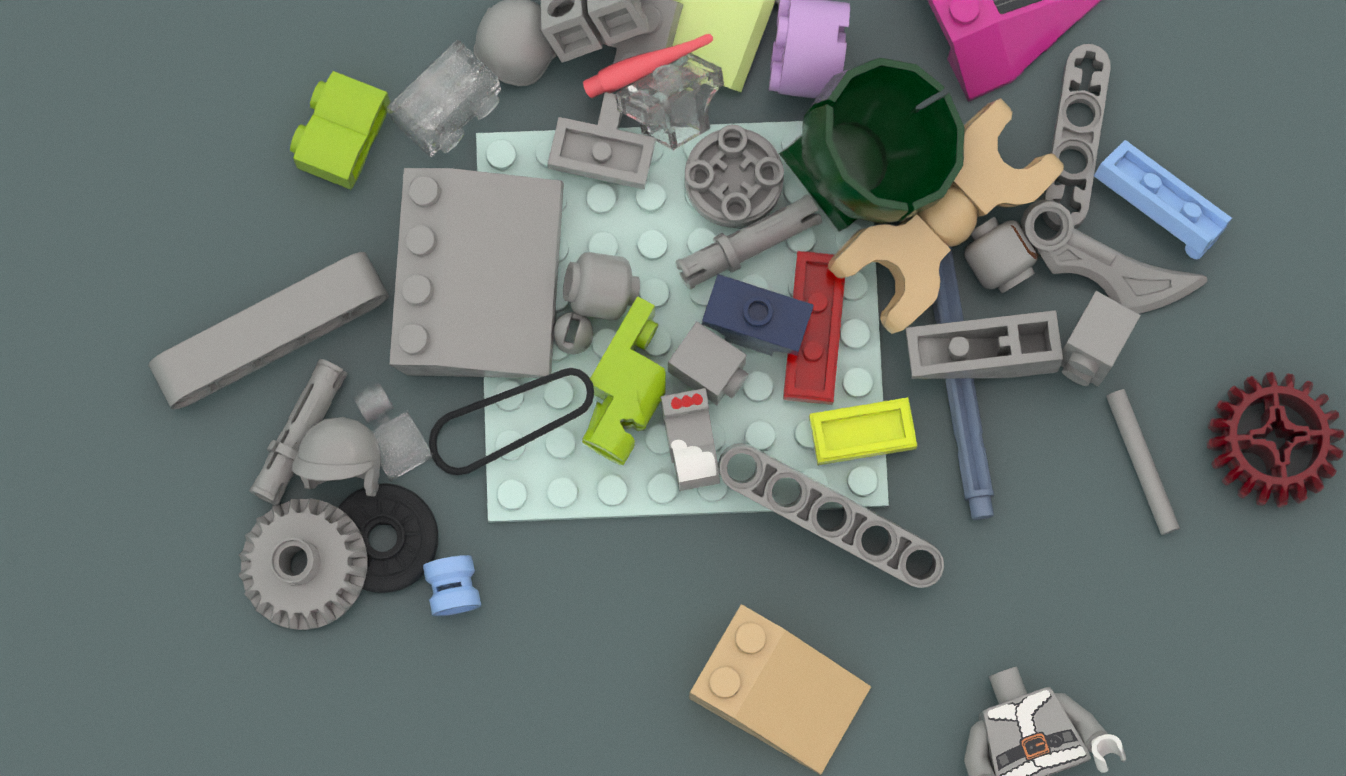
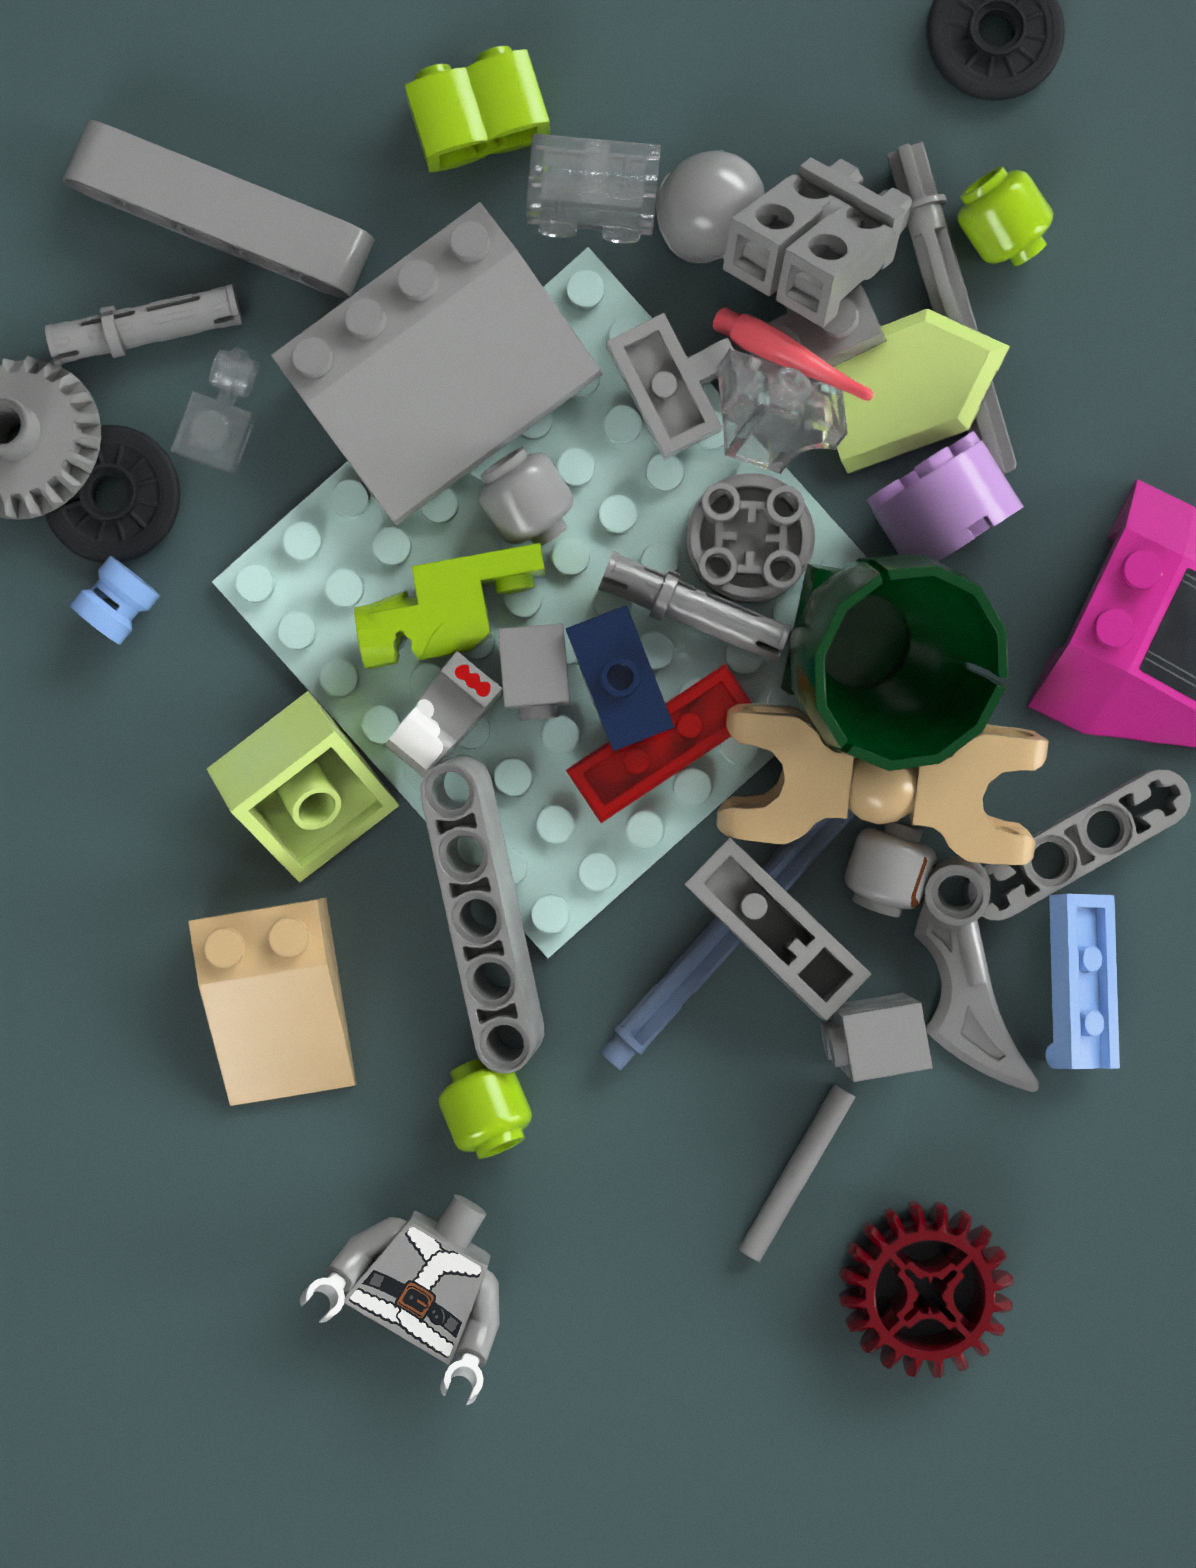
camera: 50 degrees right, 10 degrees up
(338, 451) = (143, 381): light grey helmet -> none
(522, 441) = (308, 550): black piece -> none
(583, 335) = (464, 522): light grey hinge -> none
(661, 564) = (301, 787): none -> yellowish green slope
(862, 431) = (596, 876): neon yellow tile -> none
(950, 614) = (484, 1109): none -> lime head

